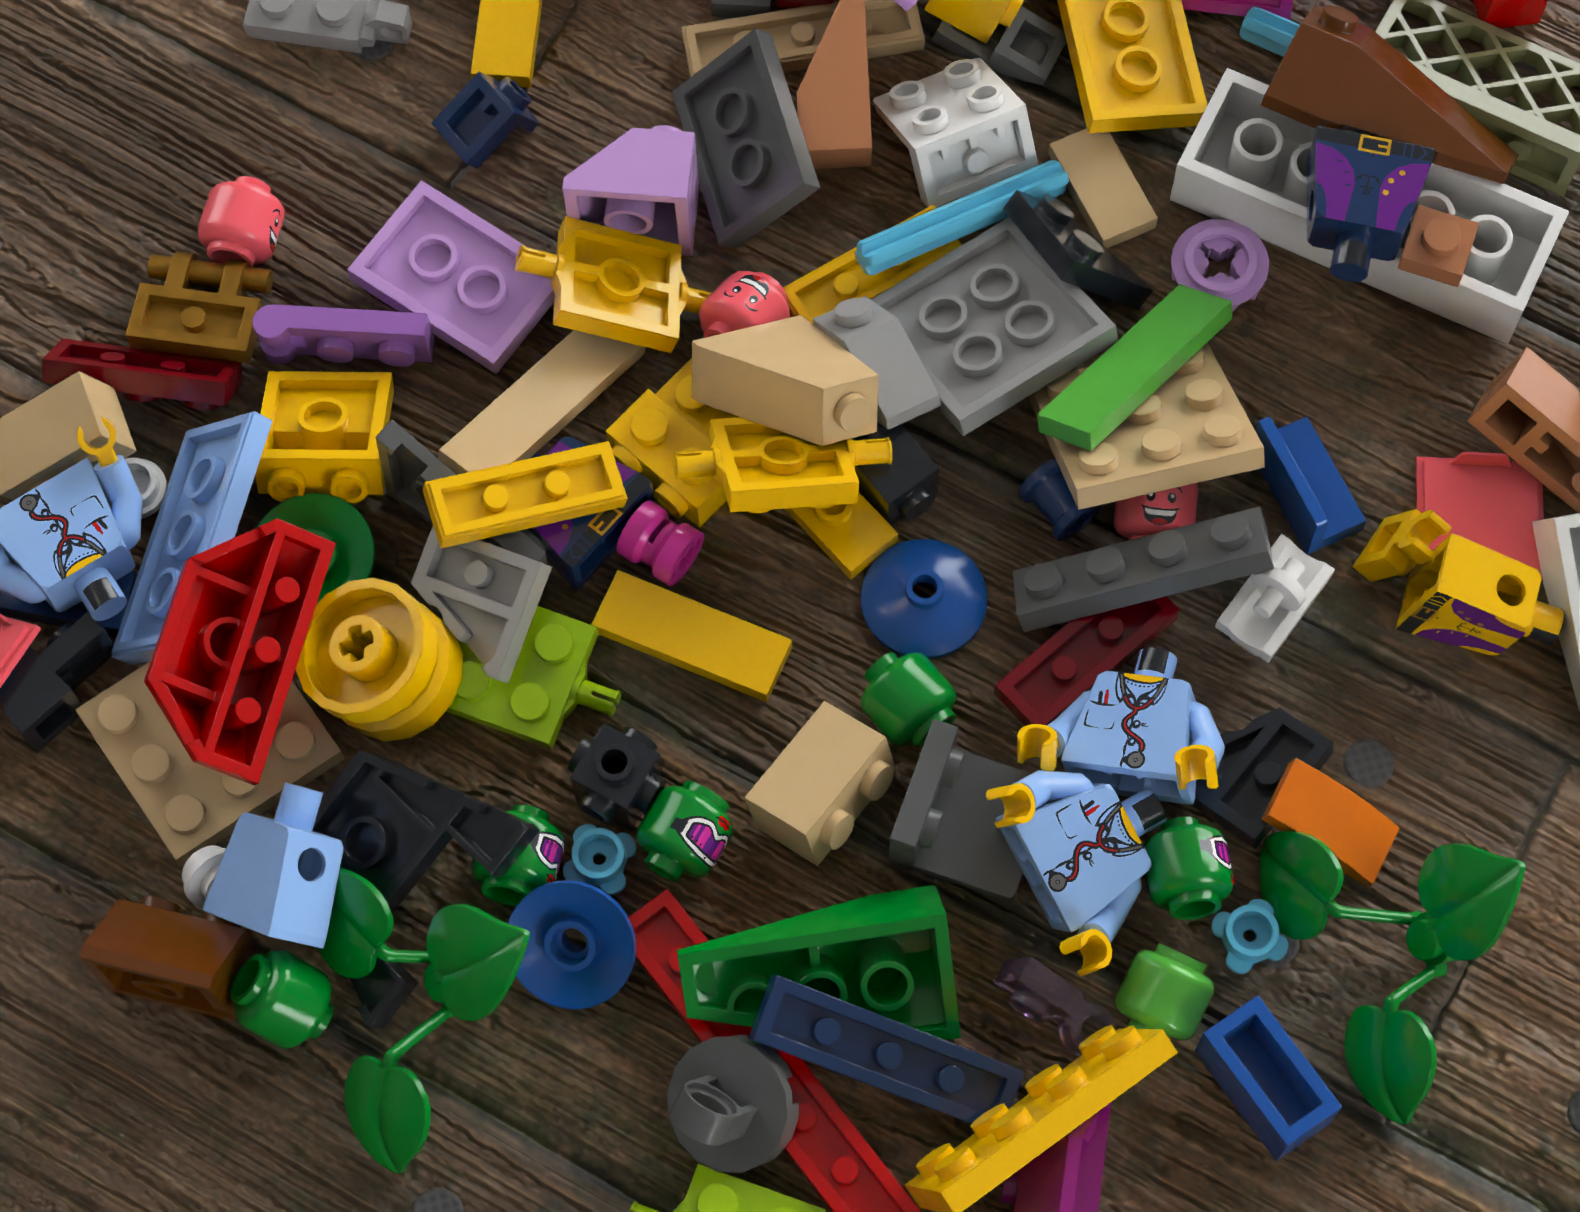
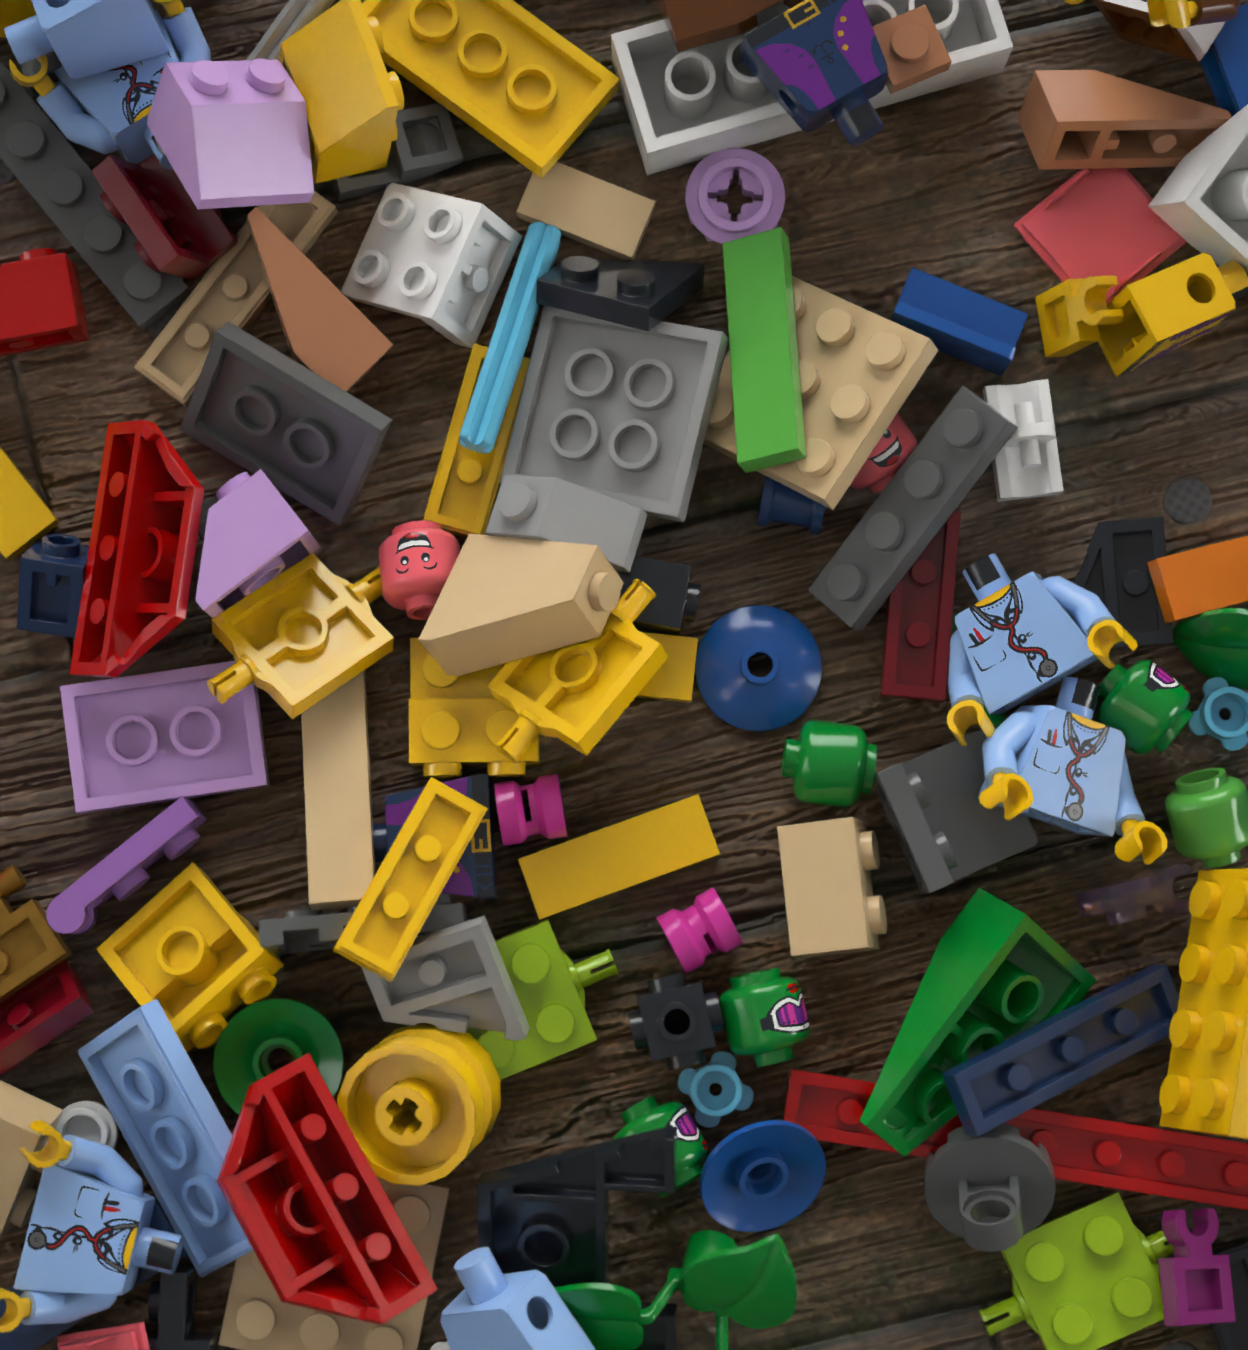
camera: 45 degrees left, 15 degrees up
(559, 132) = (137, 550): none -> red wedge
(697, 732) = (699, 930): none -> dark pink wheel

